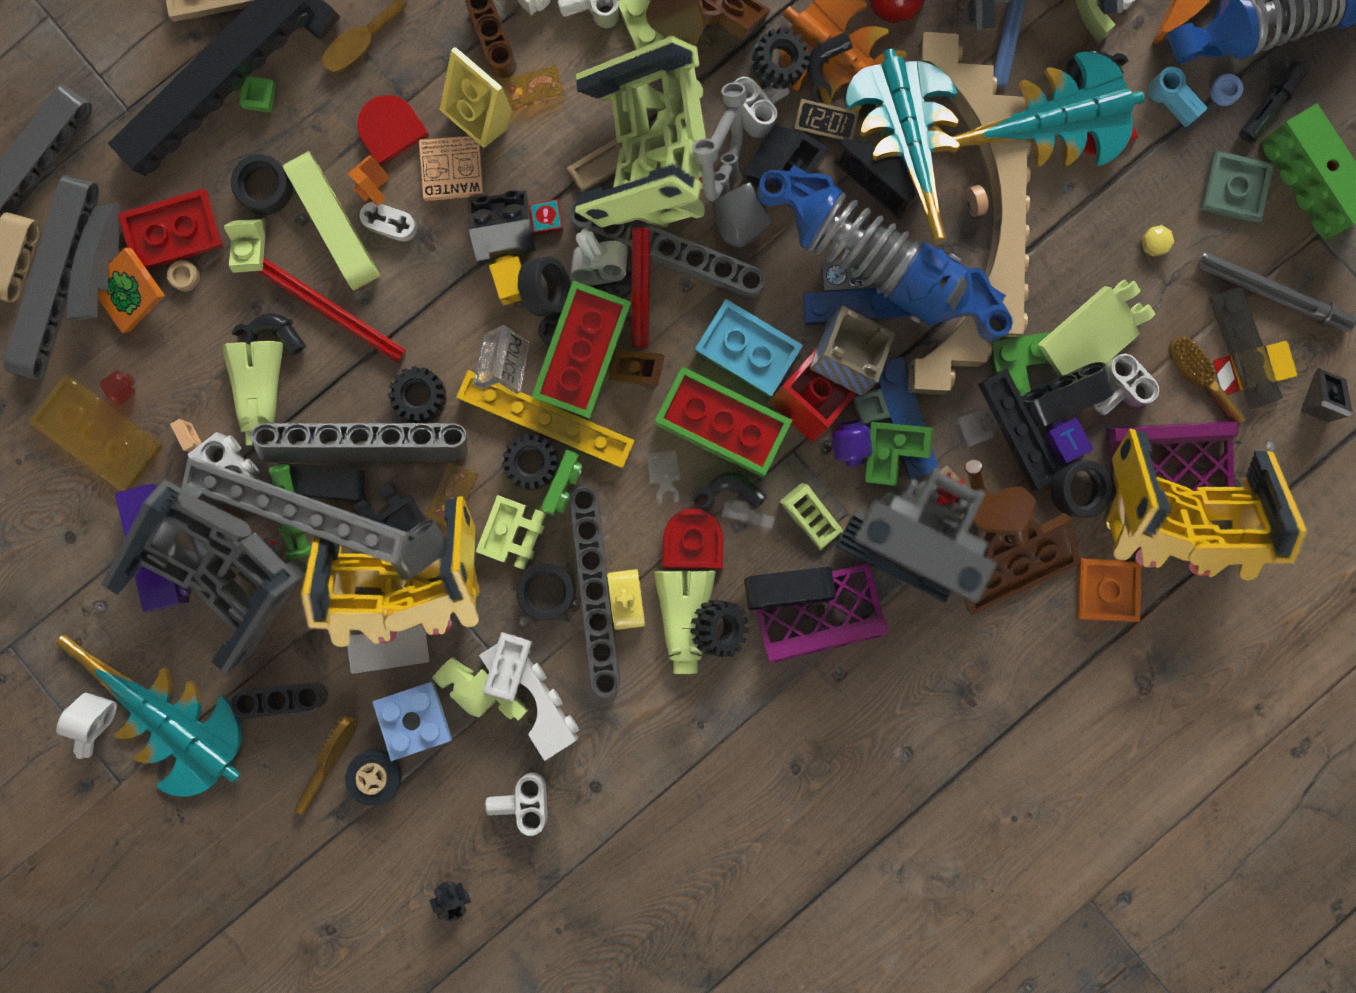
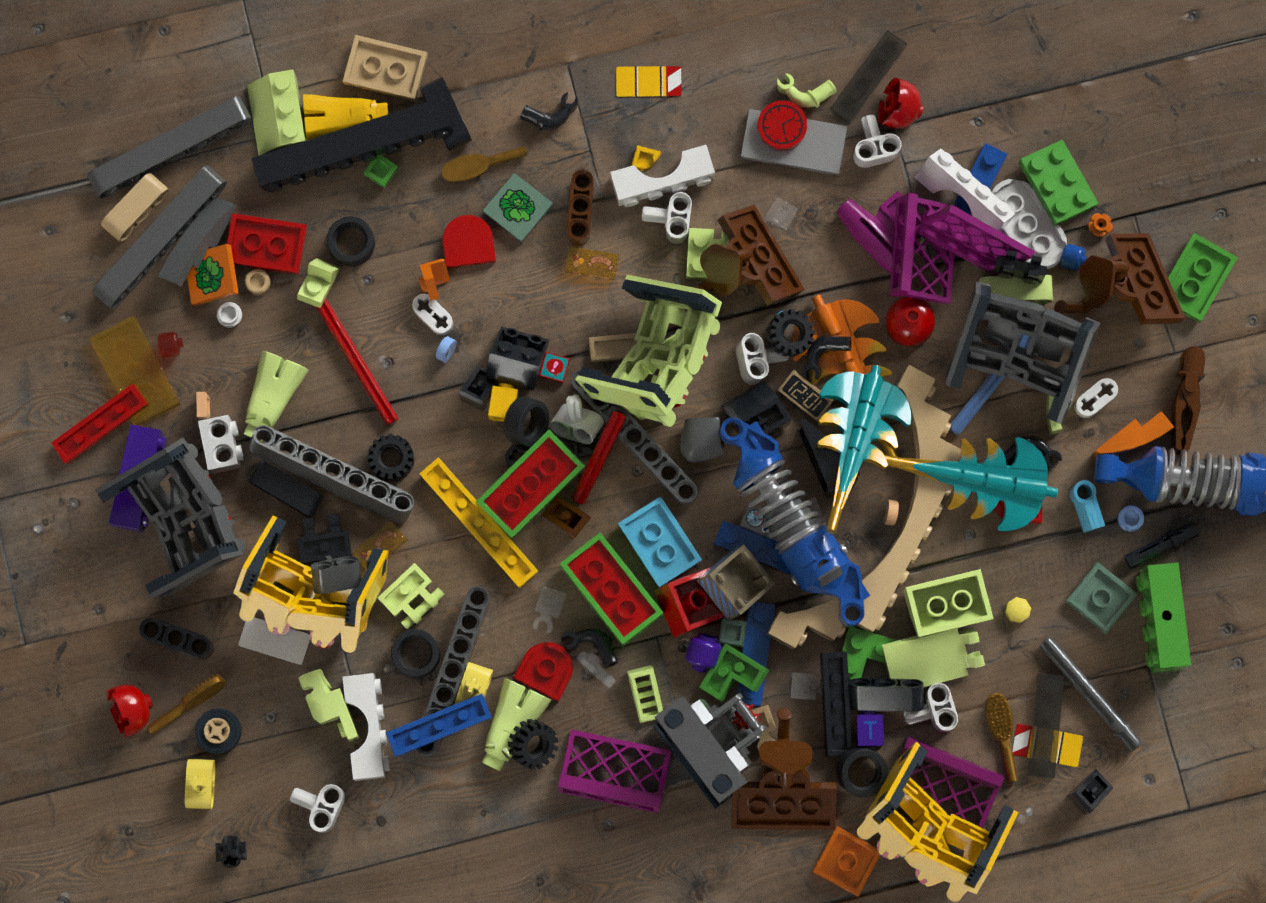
camera: 25 degrees right, 5 degrees down
(82, 508) = (100, 423): none -> red plate
(86, 721) = (25, 586): white beam -> none
(111, 79) = (276, 111): none -> yellowish green slope
(169, 56) = (332, 114): none -> yellow piece
(169, 325) = (229, 314): none -> white plate
(201, 749) = (99, 647): teal animal -> none
(265, 800) = (129, 708): none -> red cylinder
(278, 326) = (311, 355): black piece -> none
(281, 477) = (249, 513): bright green pin -> none
(297, 511) = (261, 503): light grey tile -> none
(331, 221) = (390, 294): yellowish green beam -> none
(381, 843) = (200, 784): none -> light yellow beam
(412, 720) = (268, 702): light blue piece -> none
(420, 251) = (446, 349): none -> light blue tile
(421, 65) = (518, 208): none -> sand green tile
(451, 168) = (500, 296): light nougat tile -> none
(474, 100) = (540, 258): light yellow slope -> none
(475, 278) = (477, 389): none -> black slope
(502, 359) = (467, 461): clear panel -> none
(507, 667) = (360, 695): white plate -> none
(517, 449) = (444, 536): black tyre -> none
(567, 473) = (474, 572): bright green plate -> none
(609, 658) = (438, 725): none -> blue plate
(706, 150) = (692, 382): light grey bar -> none
(789, 588) = (600, 740): black beam -> none
(1087, 266) = (948, 603): none -> yellowish green slope

